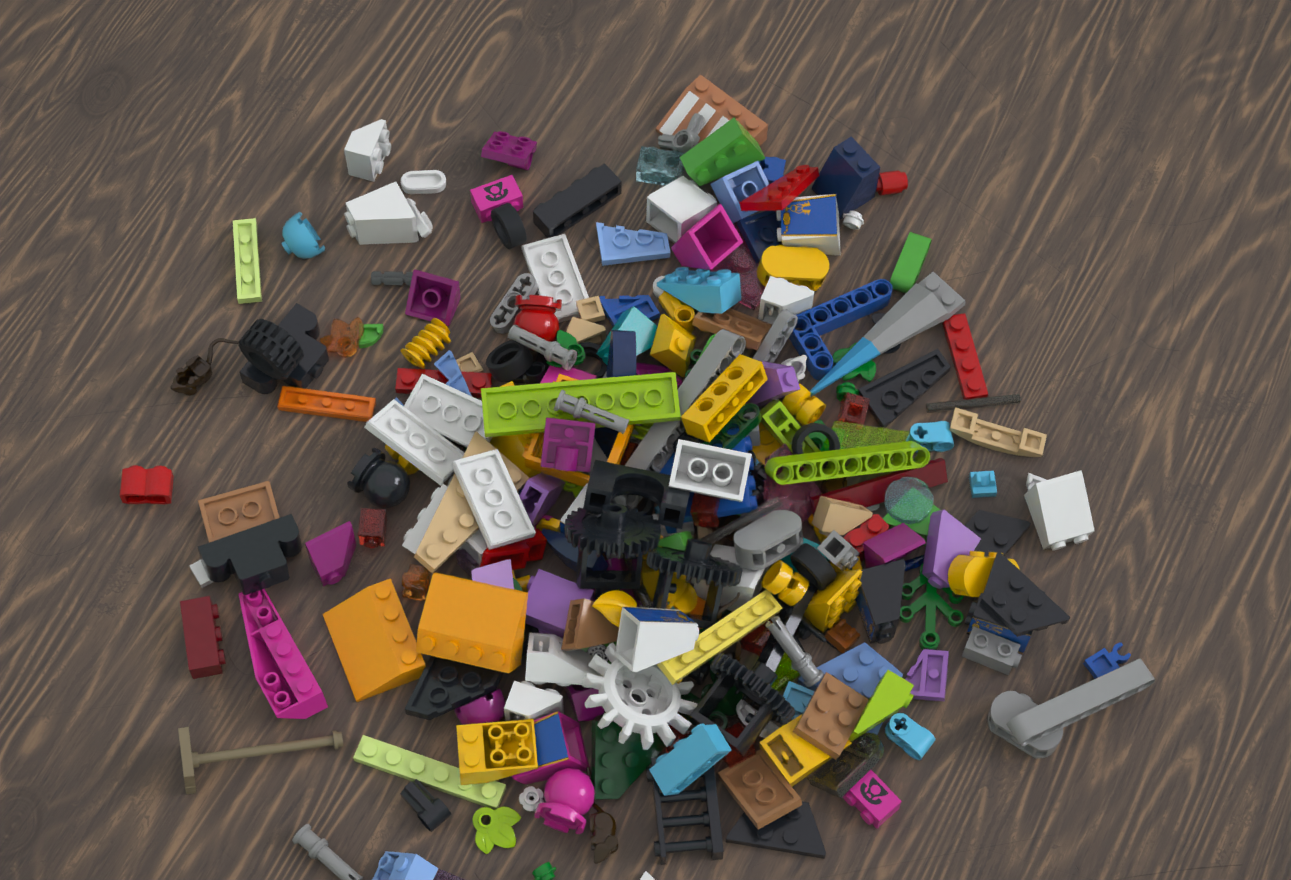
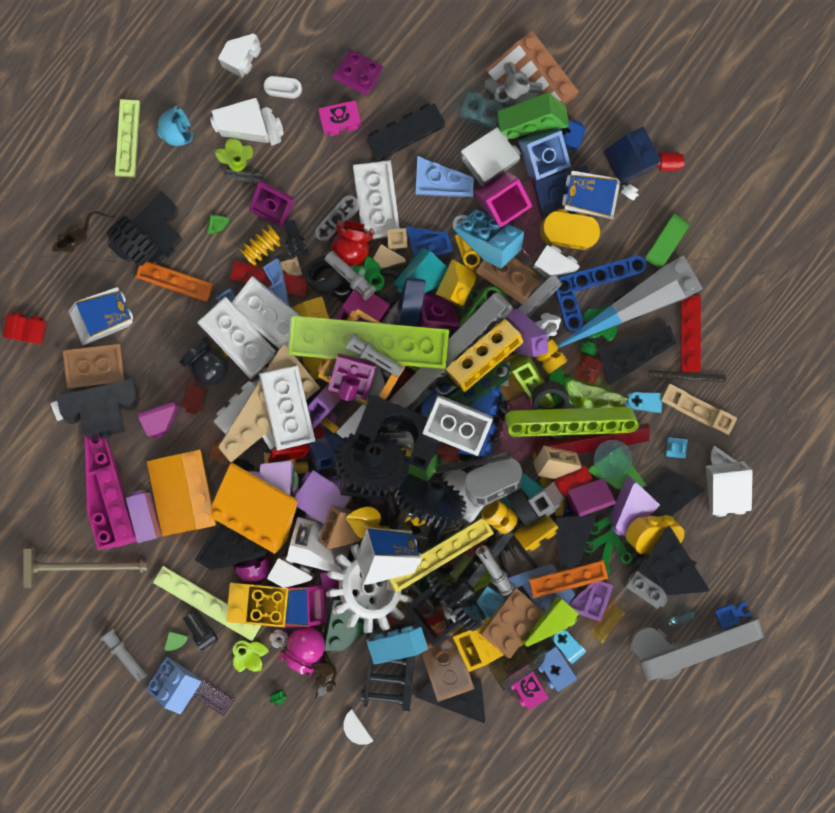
camera: 15 degrees right, 25 degrees up
(202, 637) = (53, 465): dark red brick -> none
(239, 453) = (100, 315): none -> slope
(330, 672) = (143, 516): none -> medium lavender brick
(343, 335) = (196, 221): clear orange plate -> none
(378, 256) = (234, 154): none -> lime plate
(394, 827) = (175, 641): none -> bright green tile
(469, 336) = (295, 244): none -> black axle
(508, 226) = (344, 148): black tyre -> none
(546, 553) = (321, 454): none -> dark blue slope
(697, 122) = (518, 83): none -> light grey axle
(782, 191) = (574, 164): red wing -> none
(842, 636) = (536, 556): dark orange tile -> none
(889, 652) = (568, 578): none -> orange tile
(915, 771) = (564, 676): none -> medium blue brick
(954, 700) = (608, 623): none -> clear yellow tile
(1045, 678) = (687, 616): none -> clear light blue tile

